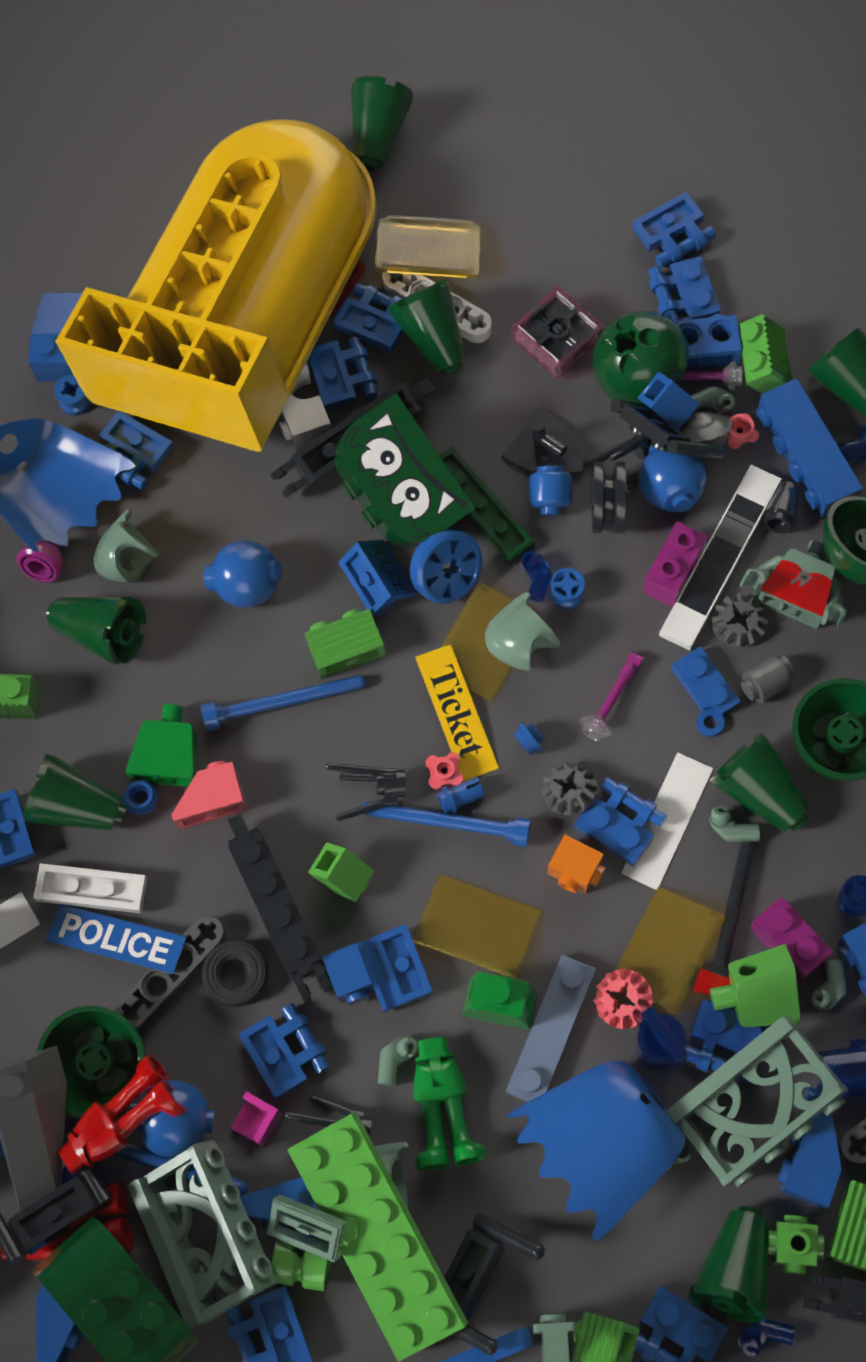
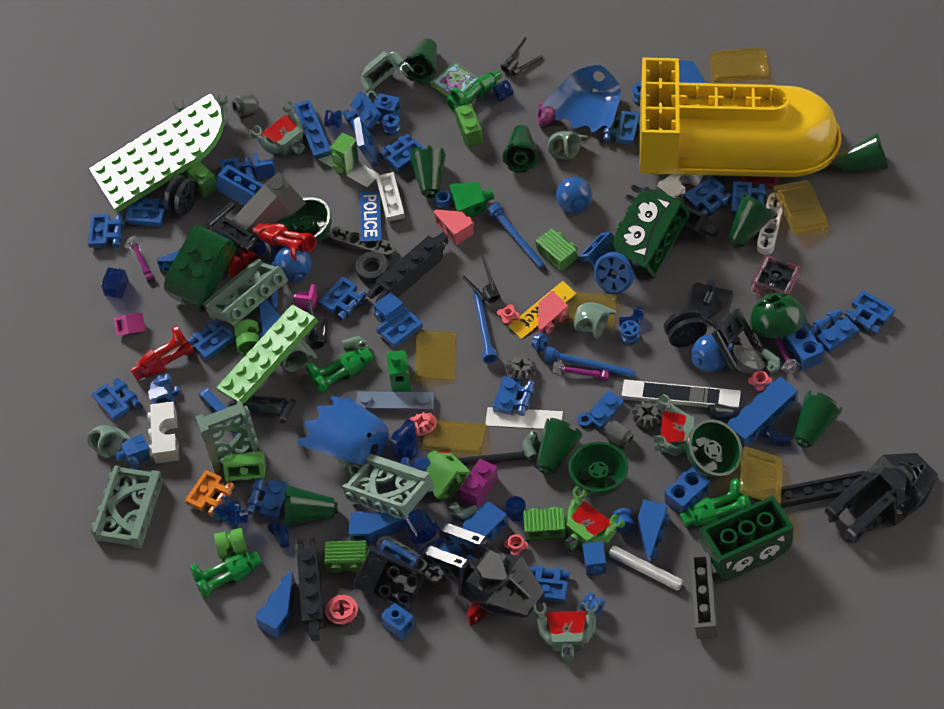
camera: 70 degrees right, 15 degrees down
(86, 231) = (738, 64): none -> clear yellow piece
(307, 1221) = (260, 325): sand green tile -> none
(341, 871) = (436, 287): bright green brick -> none
(460, 795) = (495, 322): blue pin -> none
(478, 700) = (550, 312): none -> coral slope
(490, 514) = (662, 282): dark green tile -> none
(550, 490) = (680, 302): blue head -> none
(563, 727) = (553, 355): none -> blue piece
(576, 865) = (481, 382): orange brick -> none
(668, 400) = (751, 333): blue brick -> none
(674, 564) = (663, 370): magenta brick -> none
(764, 353) = (808, 373): bright green brick -> none
(780, 1244) = (326, 528): bright green brick -> none

